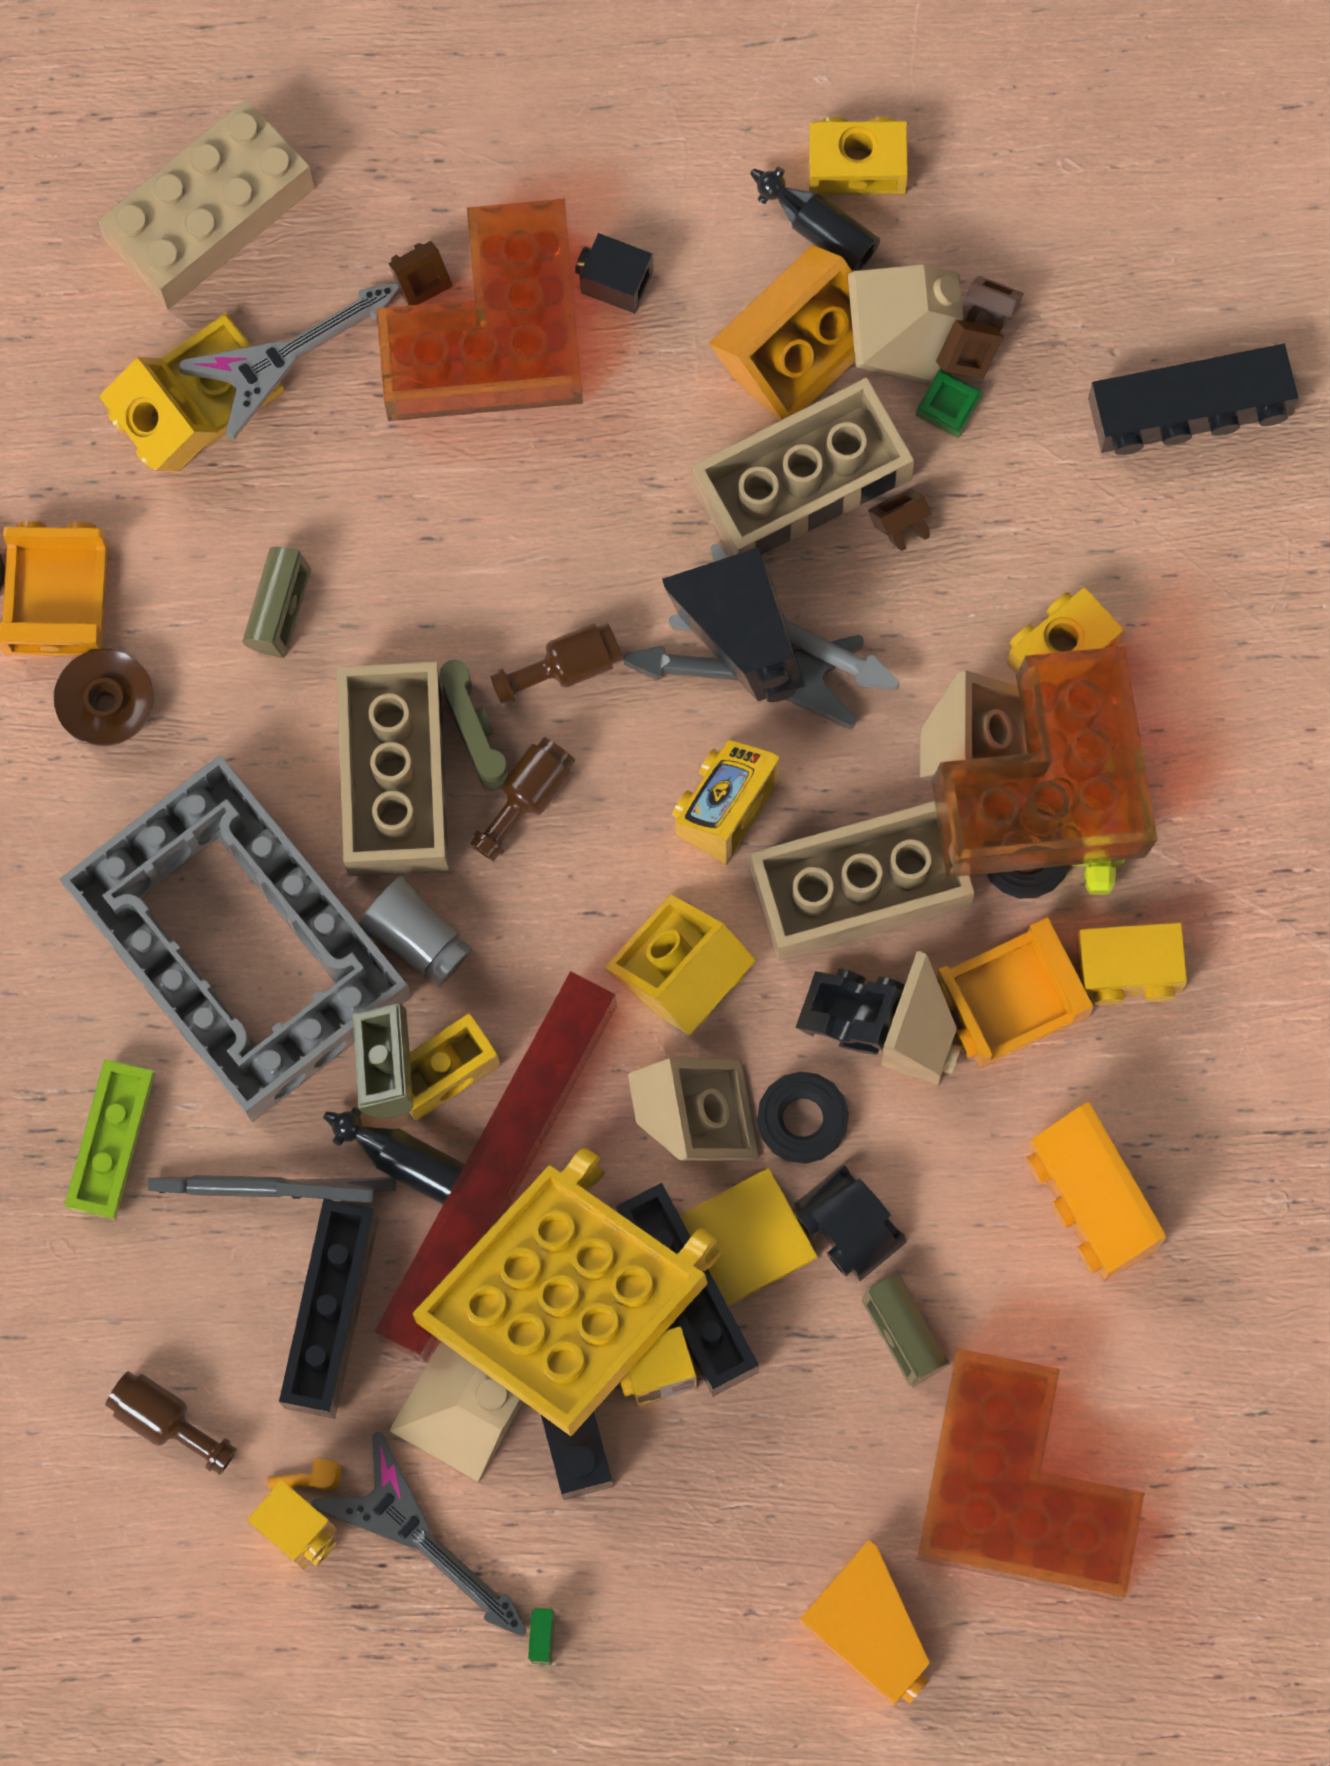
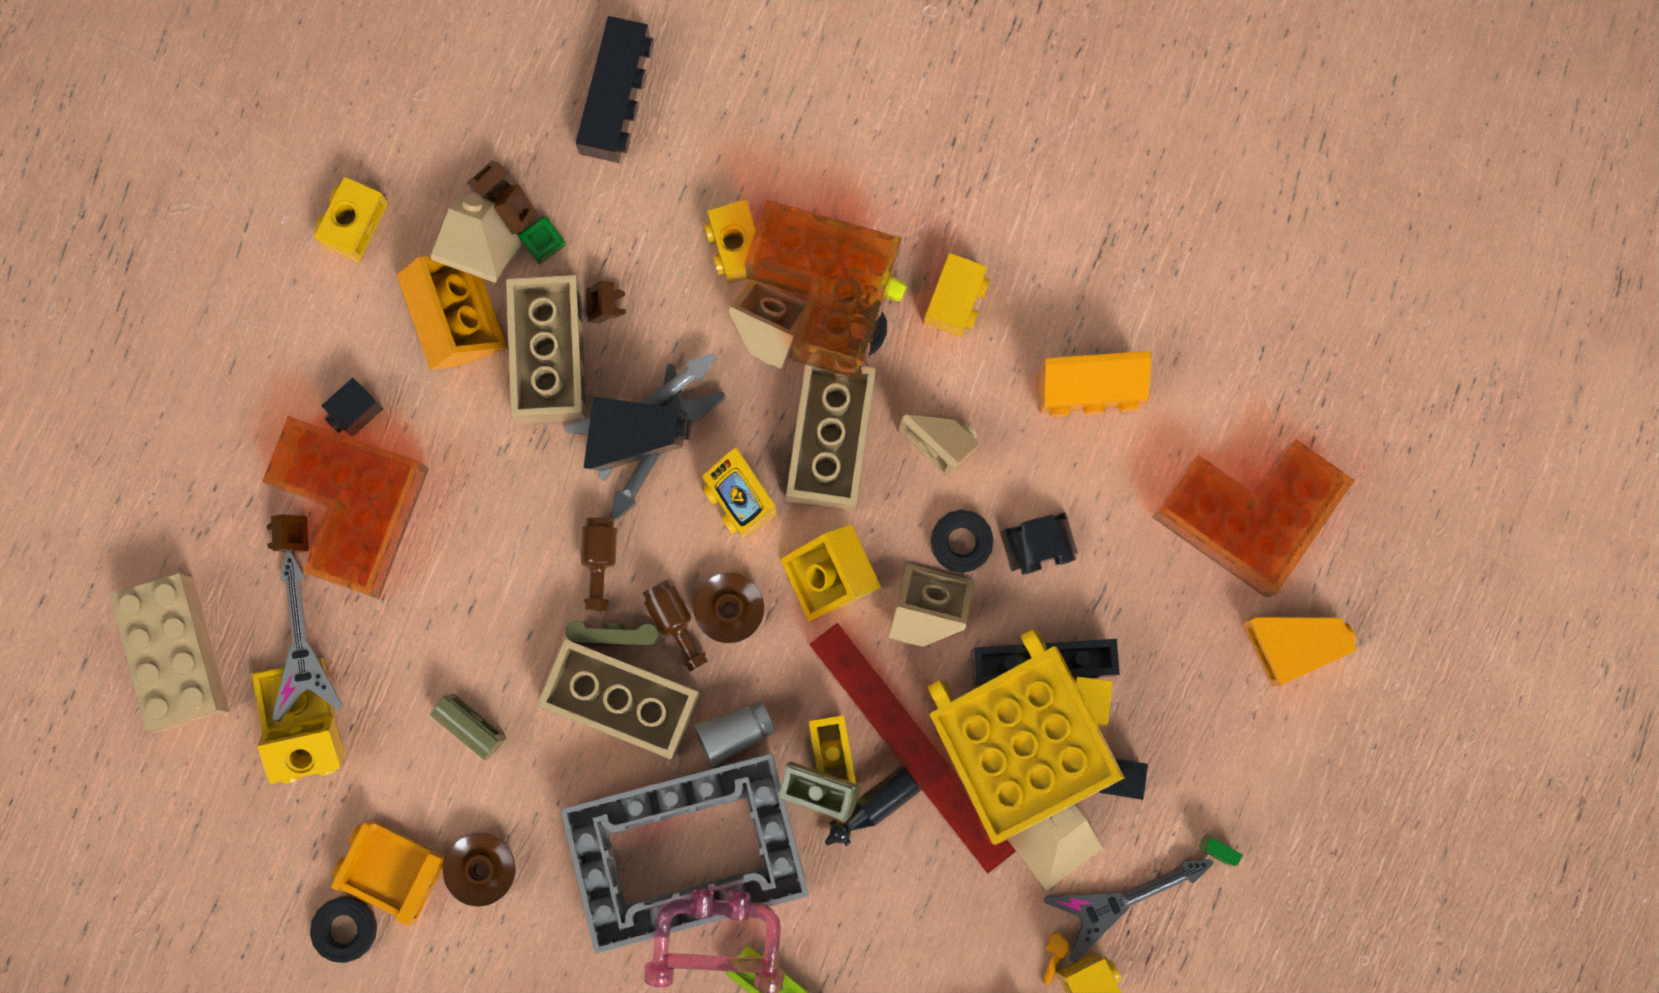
camera: 75 degrees left, 5 degrees up
(192, 1026) = (701, 905): none -> clear pink bar
(249, 1186) = (878, 863): dark grey piece -> none
(329, 1309) = (957, 897): black brick -> none
(571, 830) = (728, 589): none -> reddish brown dish
(754, 1234) = (1021, 604): yellow tile -> none
(818, 219) = (378, 264): black wheel -> none
(850, 1009) = (911, 479): black cylinder -> none
(904, 1330) = (1124, 539): olive brick -> none
(1014, 995) = (943, 374): light orange panel -> none

